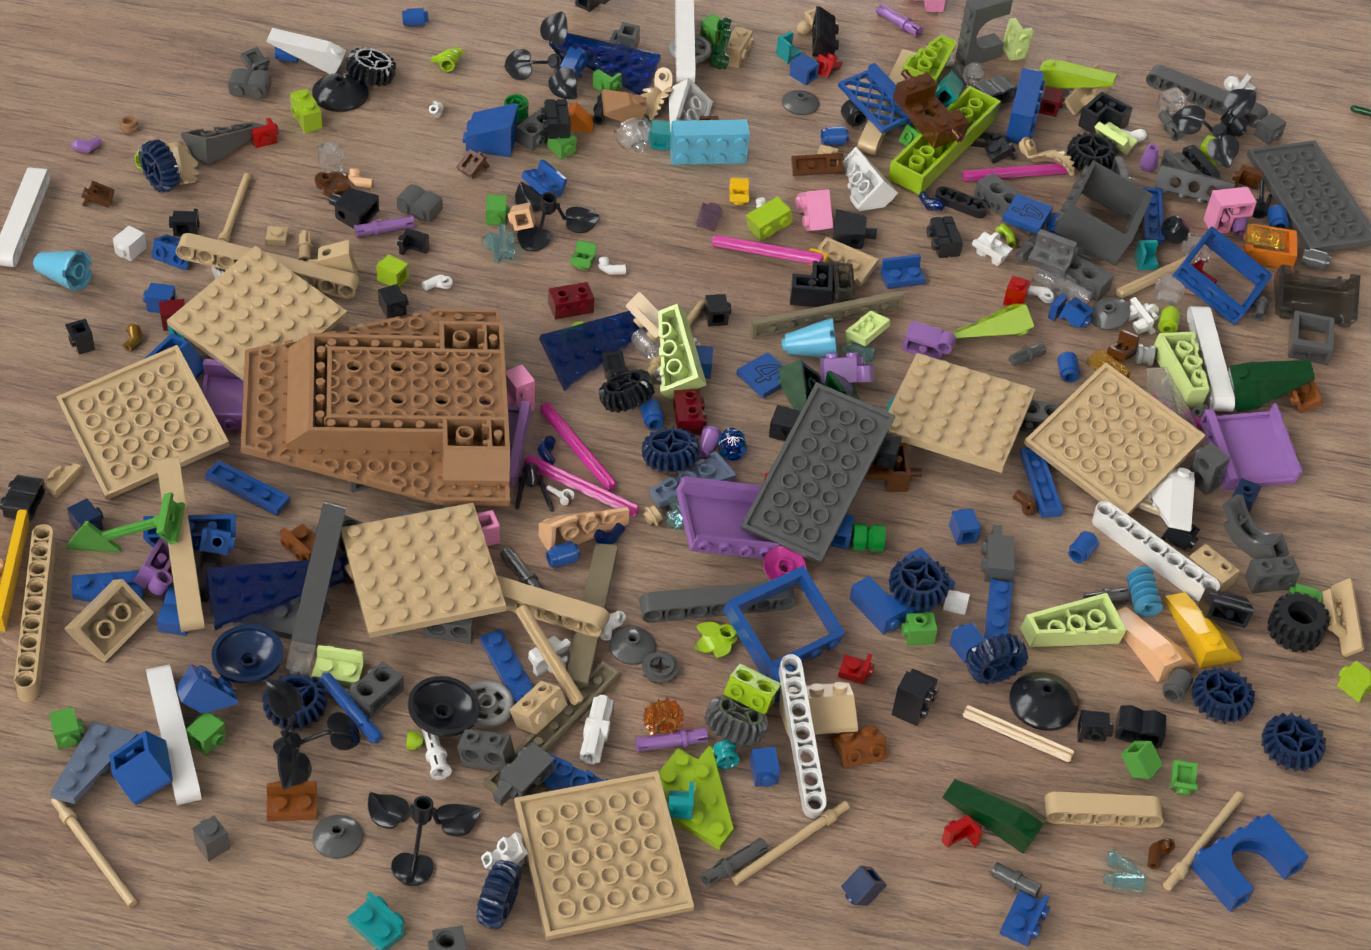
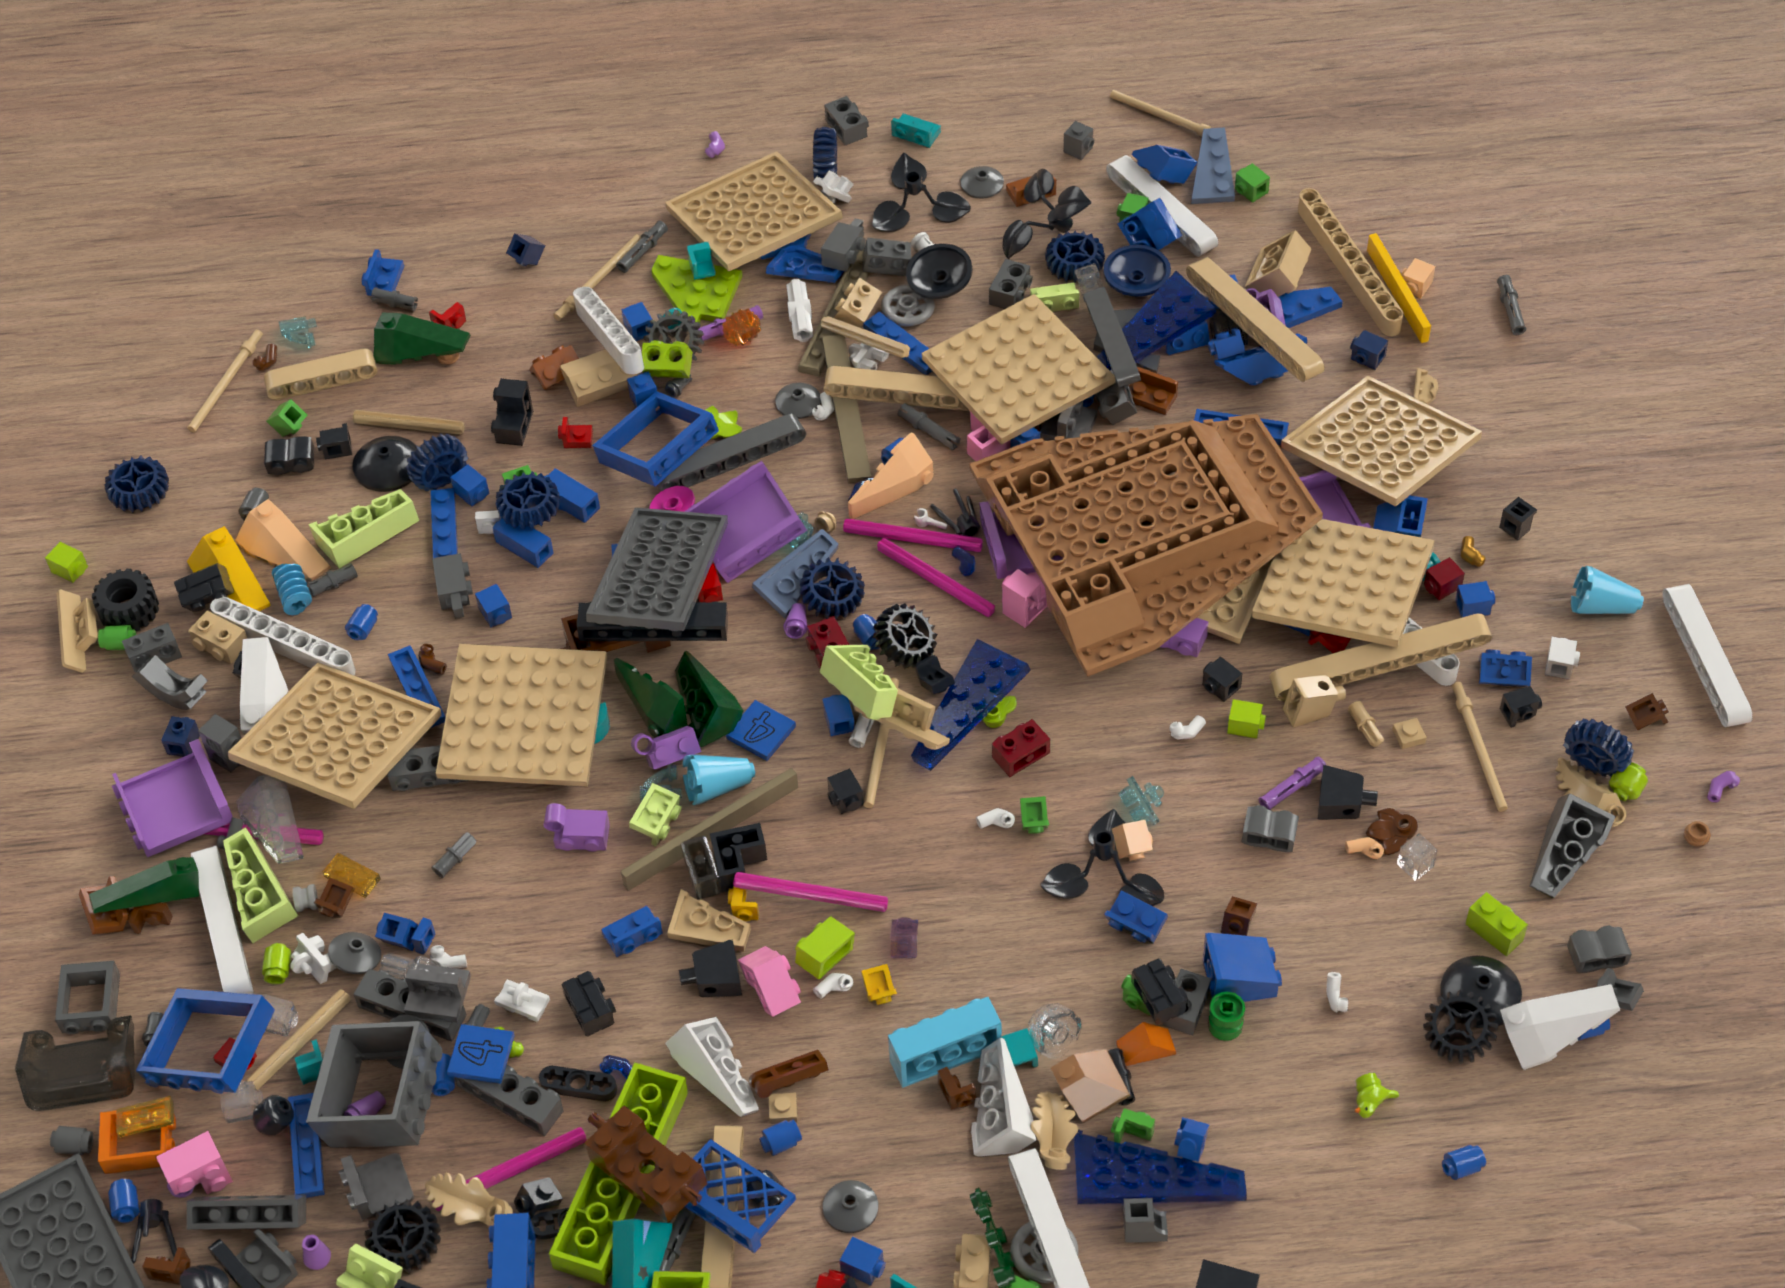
camera: 170 degrees right, 5 degrees up
(23, 494) = (1441, 351): black brick -> none
(167, 524) = (1340, 329): bright green piece -> none
(266, 134) = (1517, 871): red bracket -> none
(351, 708) = (1035, 270): blue axle -> none
(413, 240) = (1244, 770): black bracket -> none
(496, 209) = (1171, 850): bright green brick -> none
(564, 82) = (1220, 1134): black plant -> none
(668, 663) = (769, 376): dark grey gear -> none
(732, 444) = (769, 622): clear blue head -> none
(870, 538) = (585, 560): green wheel -> none
(1006, 321) = (495, 887): lime wedge -> none
(1016, 291) = (478, 937): red brick -> none
(1068, 366) = (400, 851): blue brick -> none
(1115, 220) = (366, 1106): none -> medium lavender cone
(1183, 777) = (245, 418): bright green bracket -> none
(1220, 700) = (206, 508): dark blue gear -> none
(1261, 837) = (173, 390): blue arch -> none

